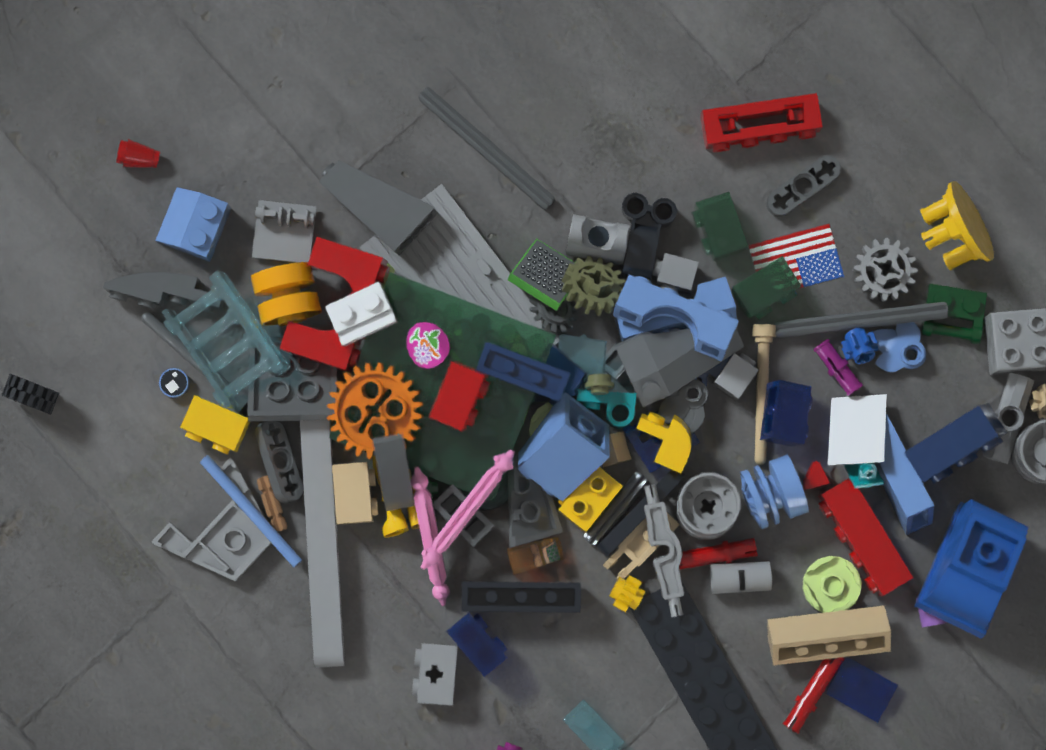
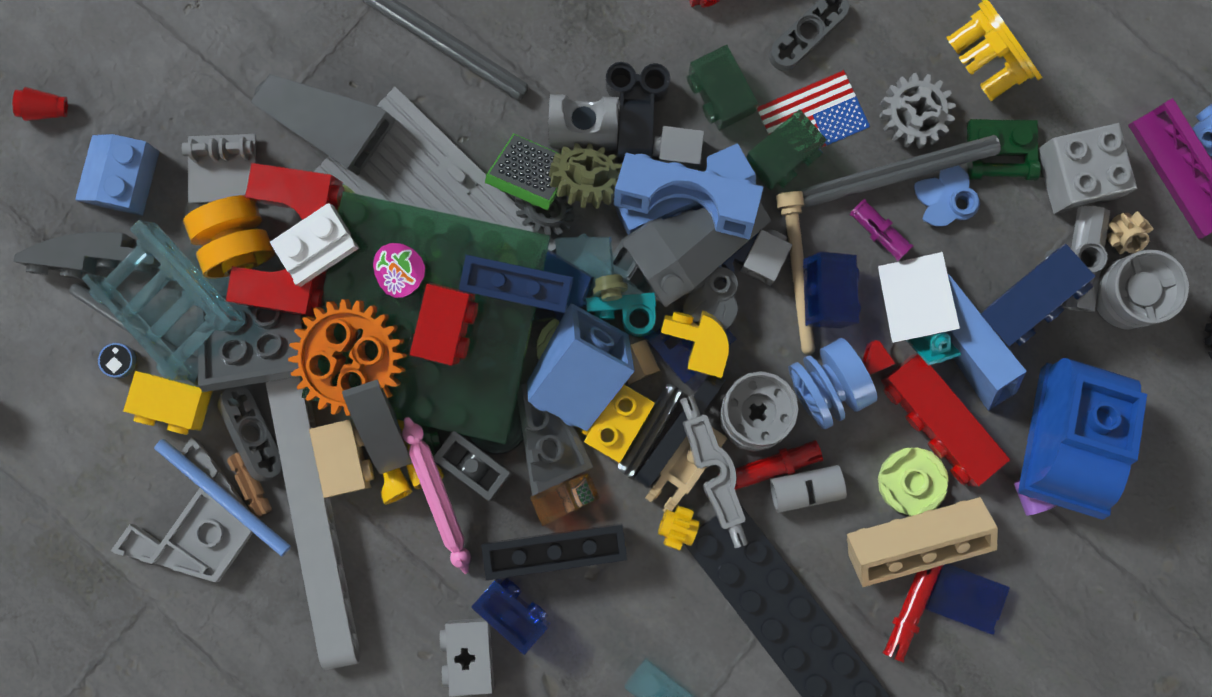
camera: 10 degrees left, 0 degrees up
(467, 509) = (475, 458): bright pink wheel -> none
(859, 345) = (903, 200): blue gear -> none

